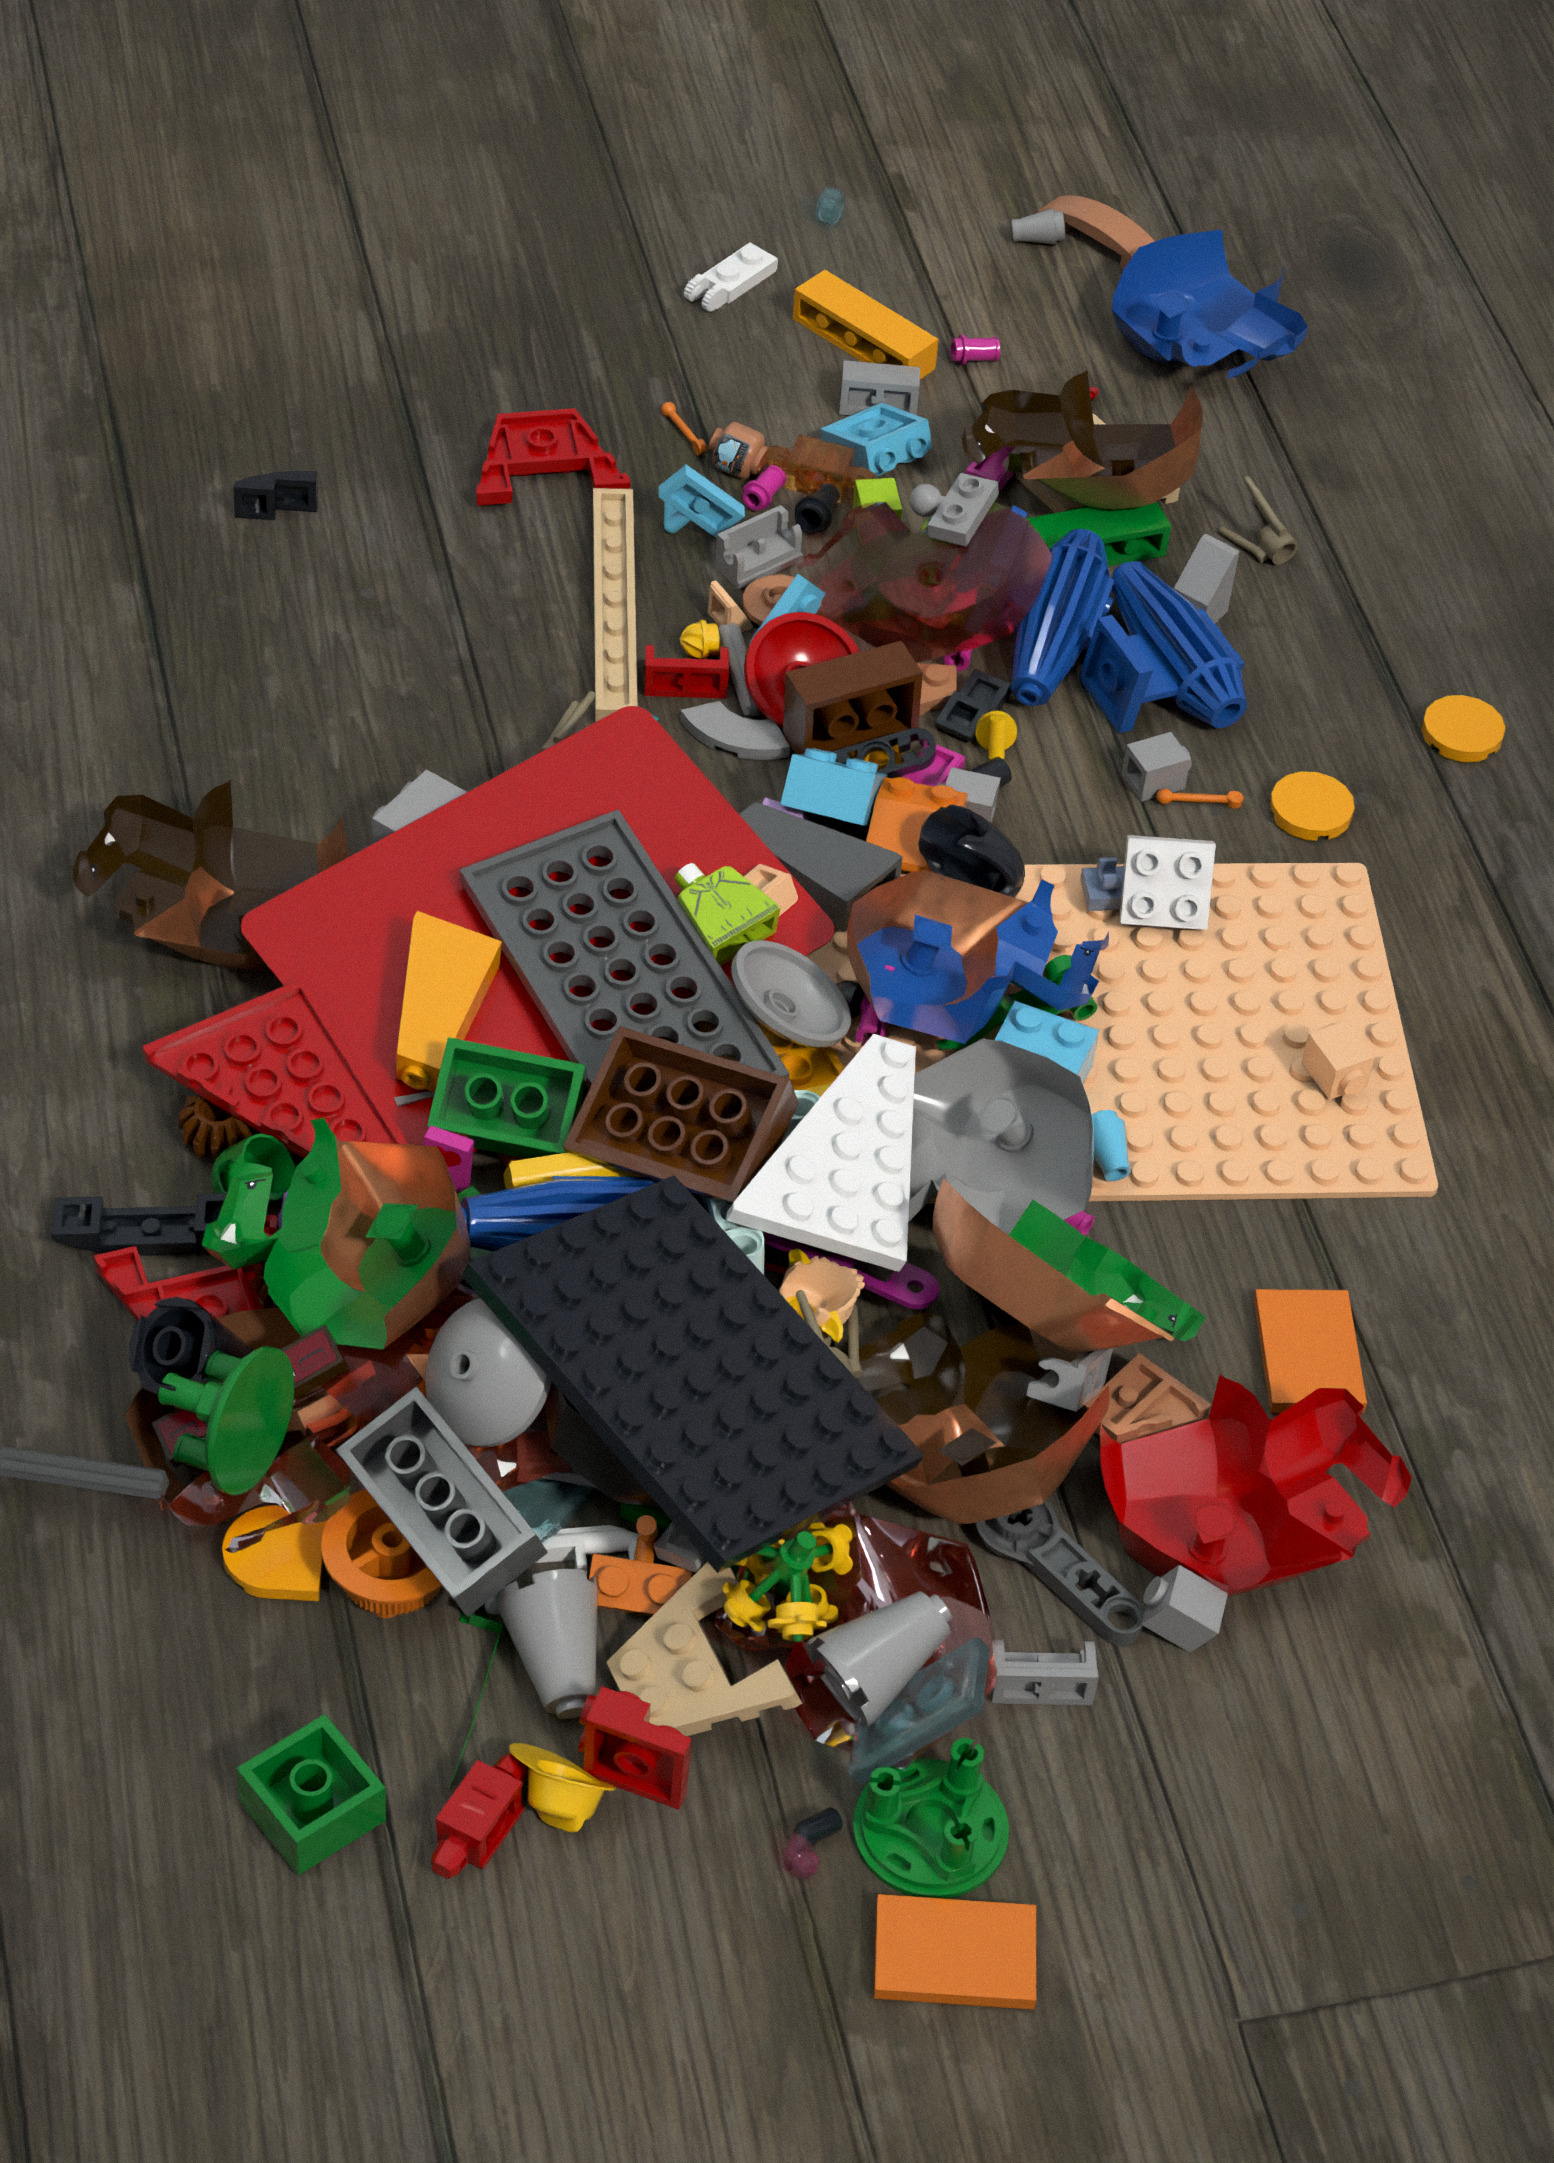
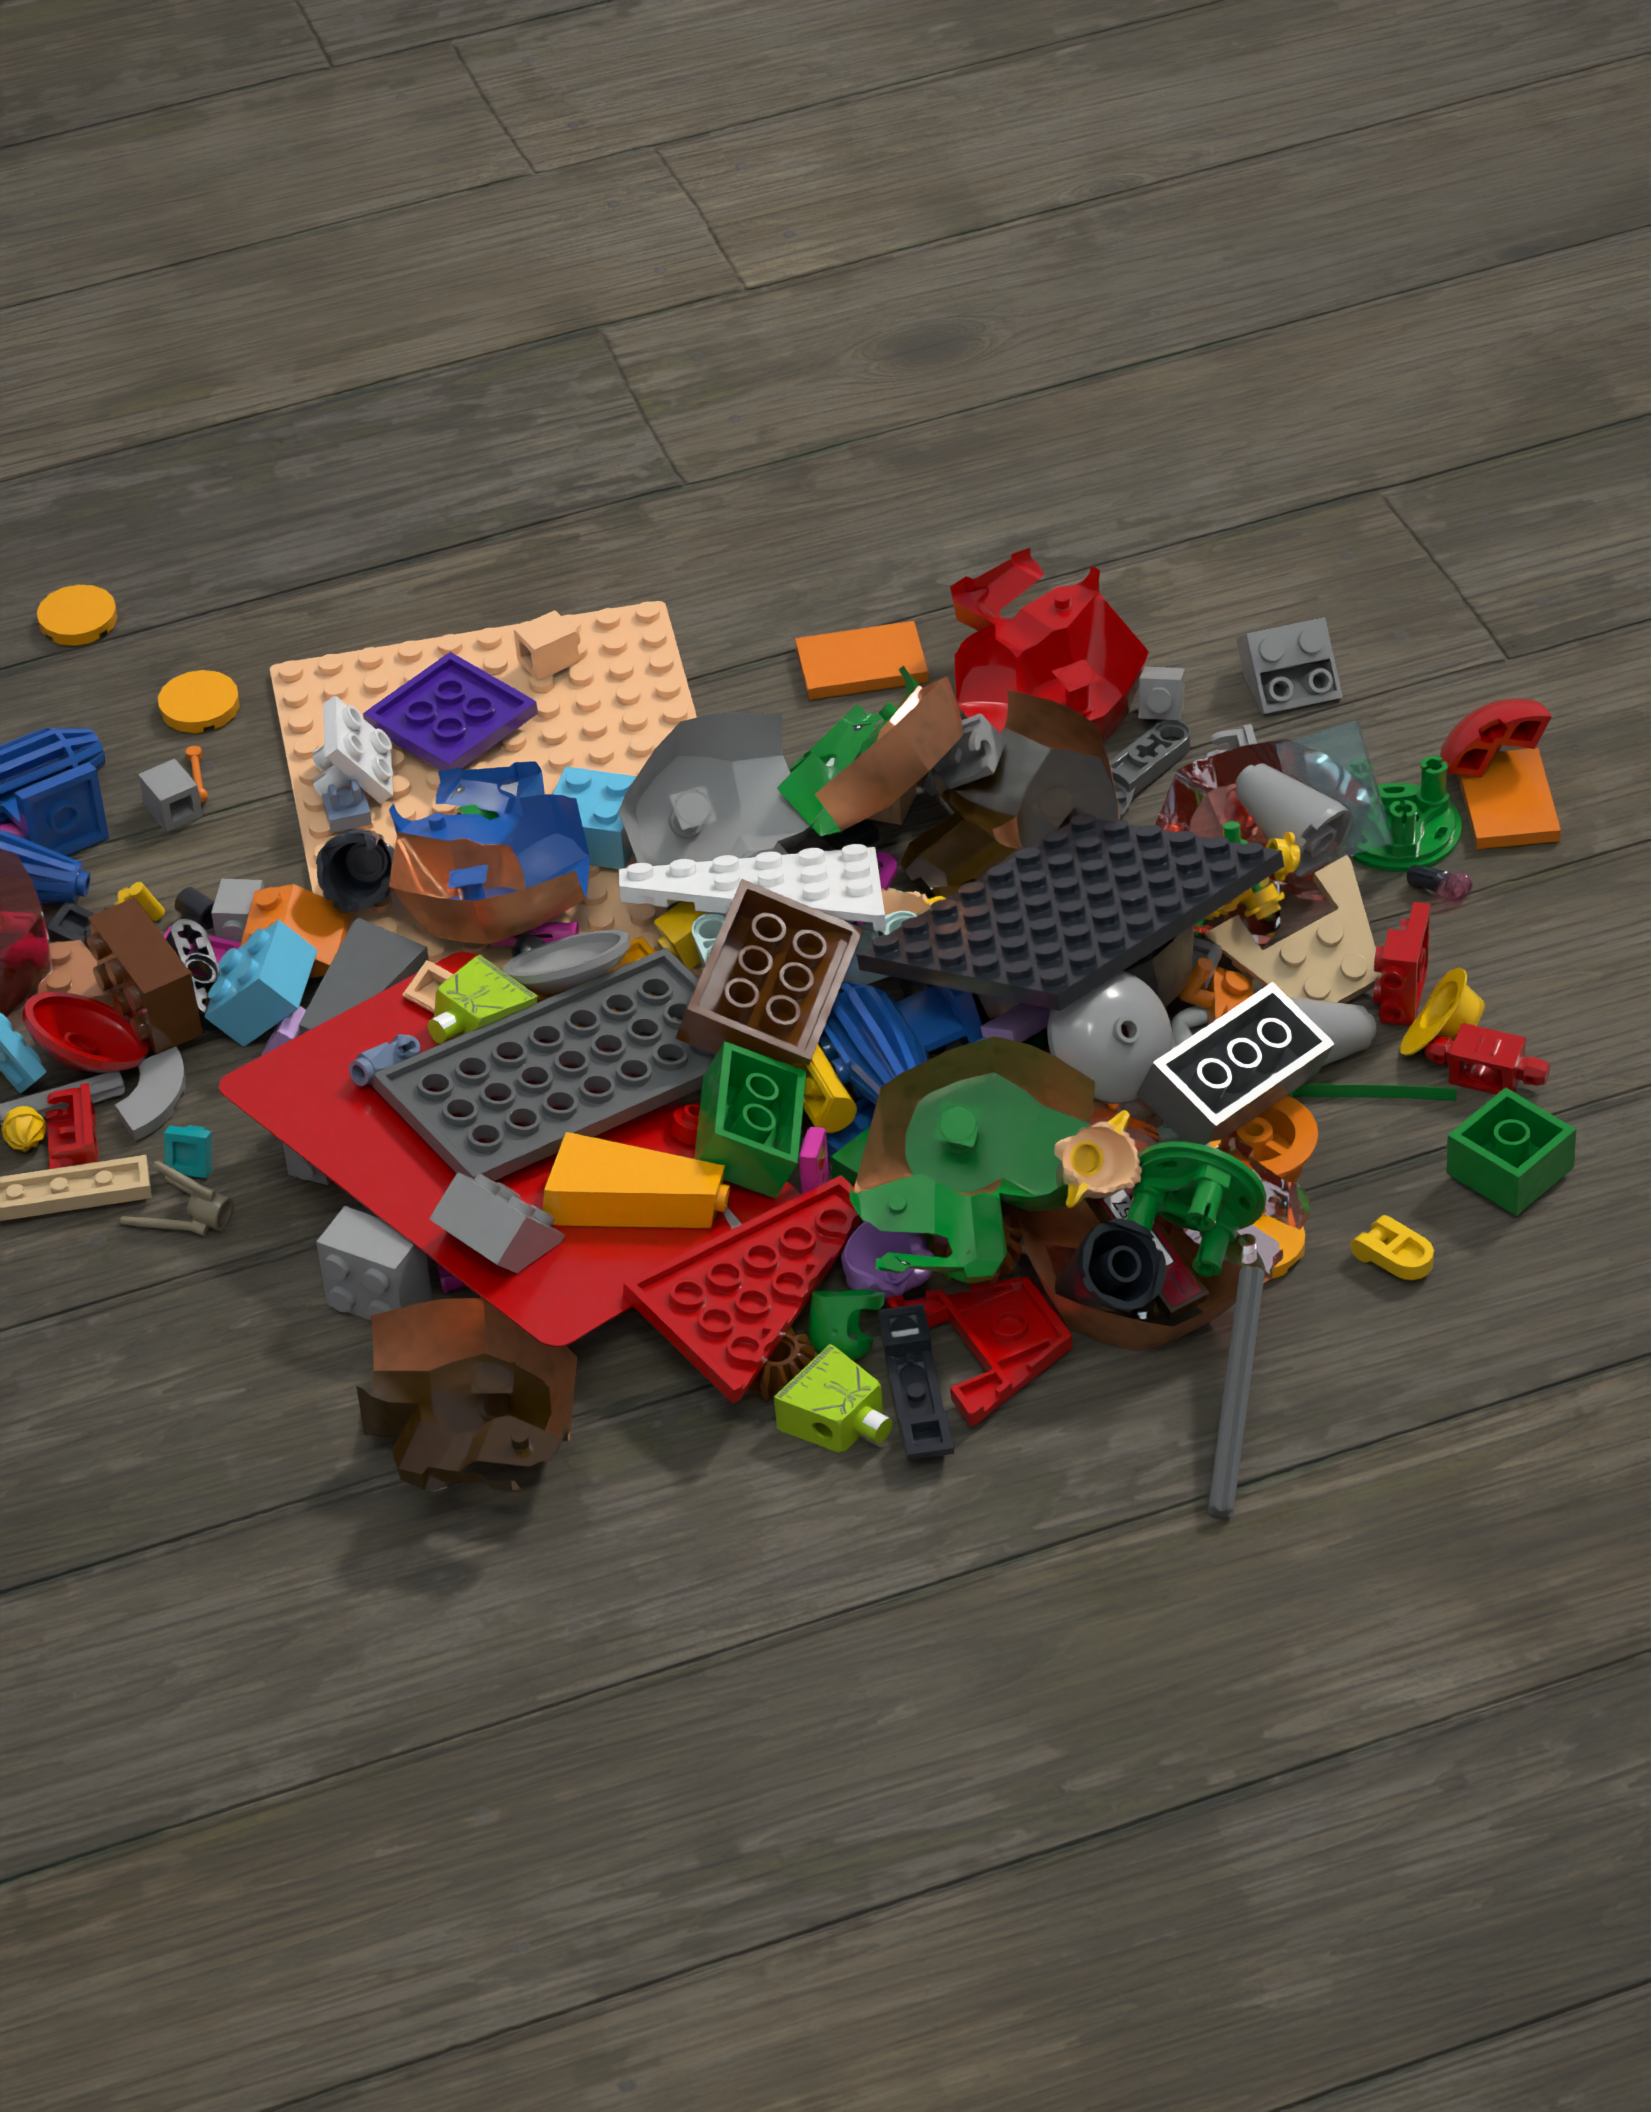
camera: 90 degrees left, 5 degrees down
(151, 1158) = (832, 1403): none -> lime torso
(202, 1678) = (1395, 1249): none -> yellow plate
(299, 1325) = (1098, 1161): none -> light nougat hair
(392, 880) = (496, 1222): none -> light grey slope
(645, 825) = (381, 1057): none -> sand blue arm
(1038, 1925) = (1485, 730): none -> red brick
(1229, 1756) = (1290, 666): none -> light grey slope
(1238, 975) = (451, 713): none -> dark purple plate

